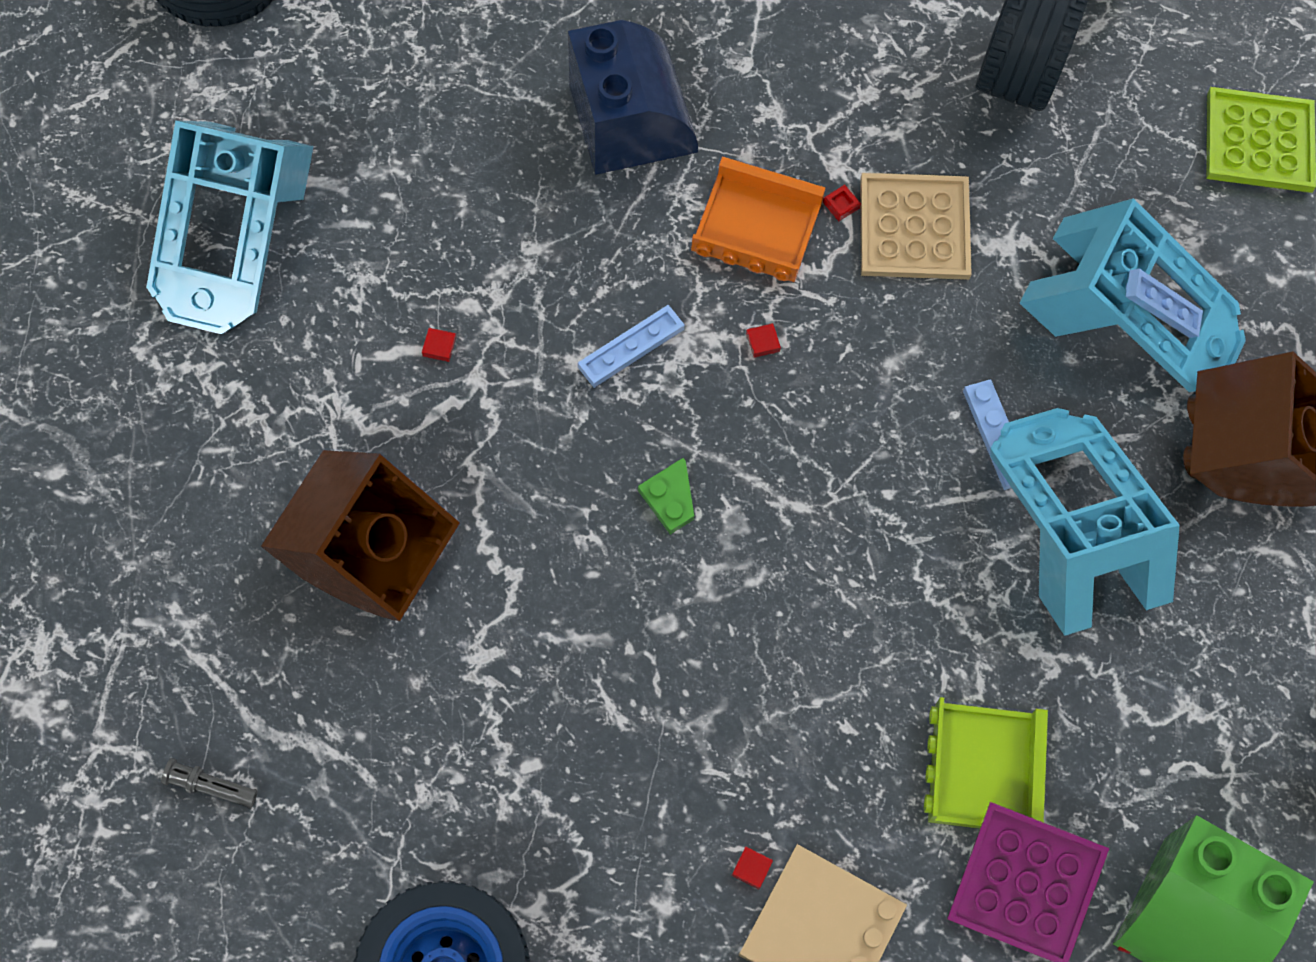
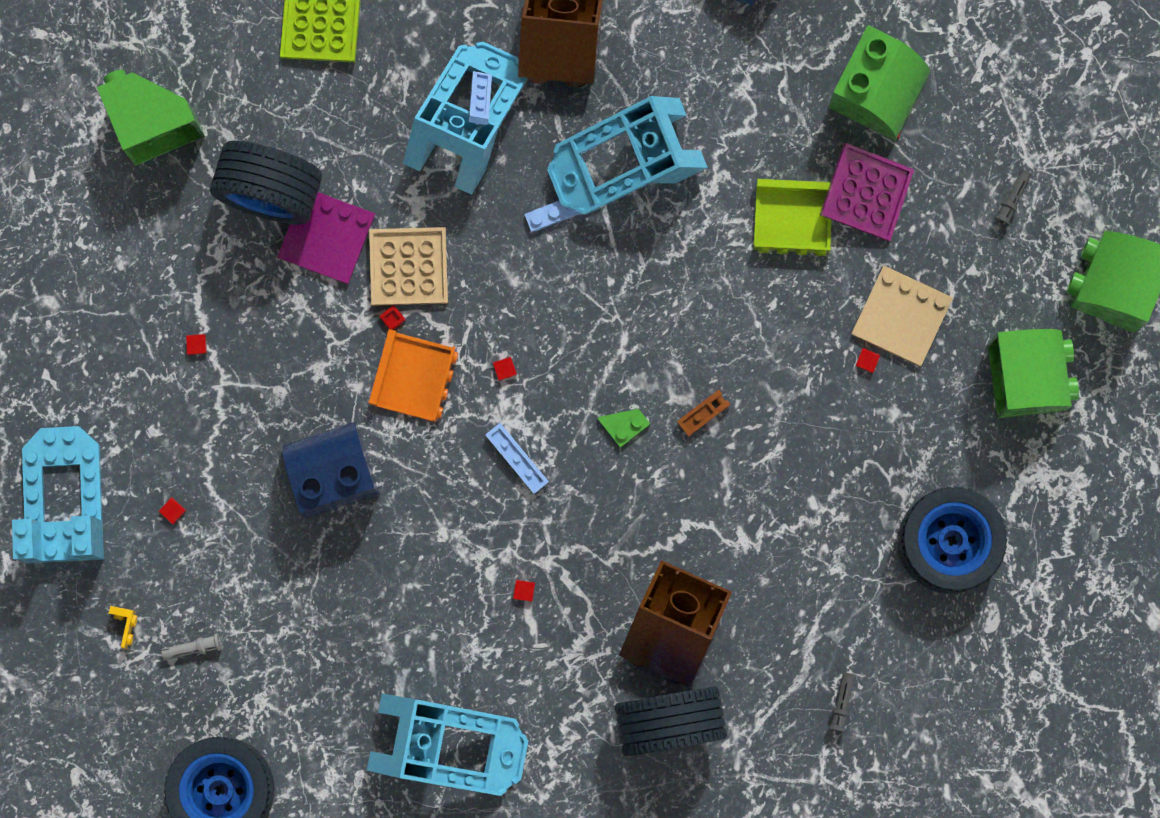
camera: 85 degrees left, 15 degrees up
(205, 503) = (670, 721): none -> black wheel
(681, 607) = (702, 413): none -> dark orange plate
(958, 130) = (329, 240): none -> magenta plate

